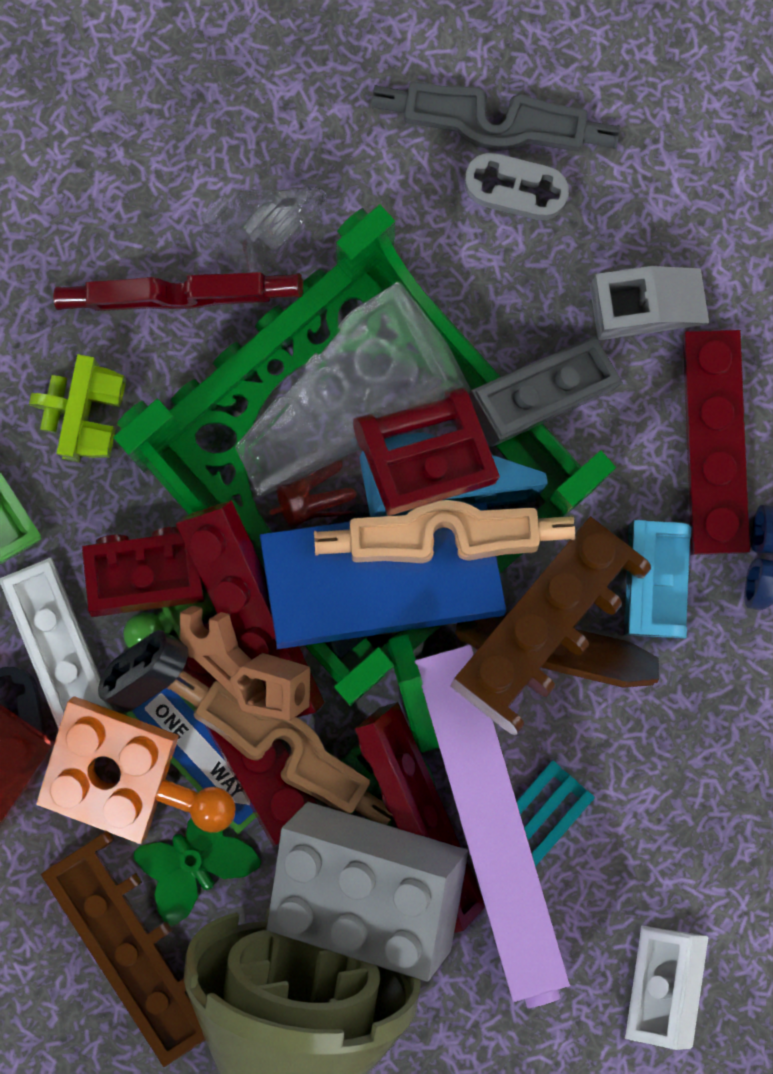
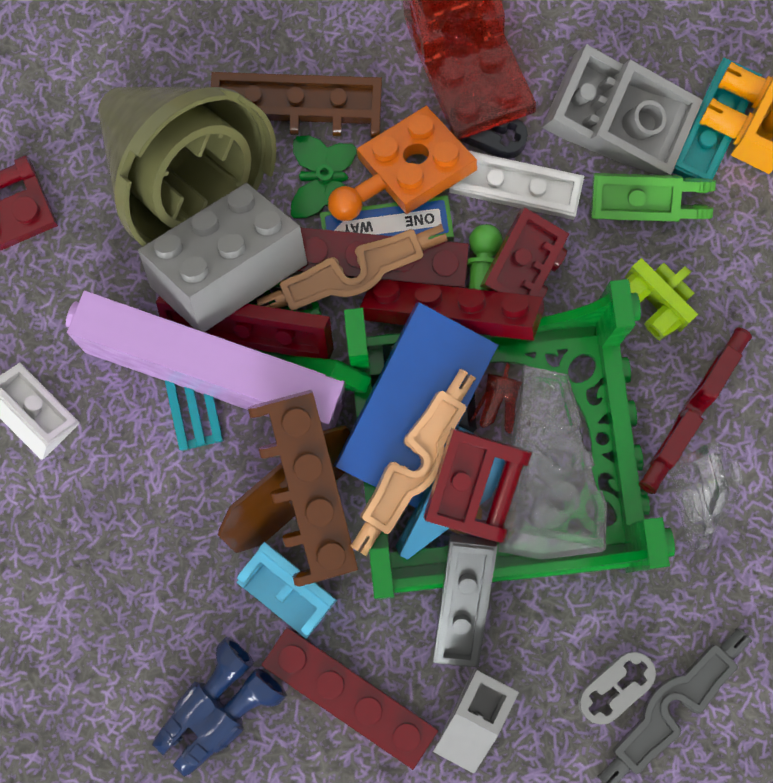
camera: 135 degrees right, 5 degrees down
(143, 671) = (462, 218): black beam -> none
(218, 652) = (400, 279): nougat piece -> none

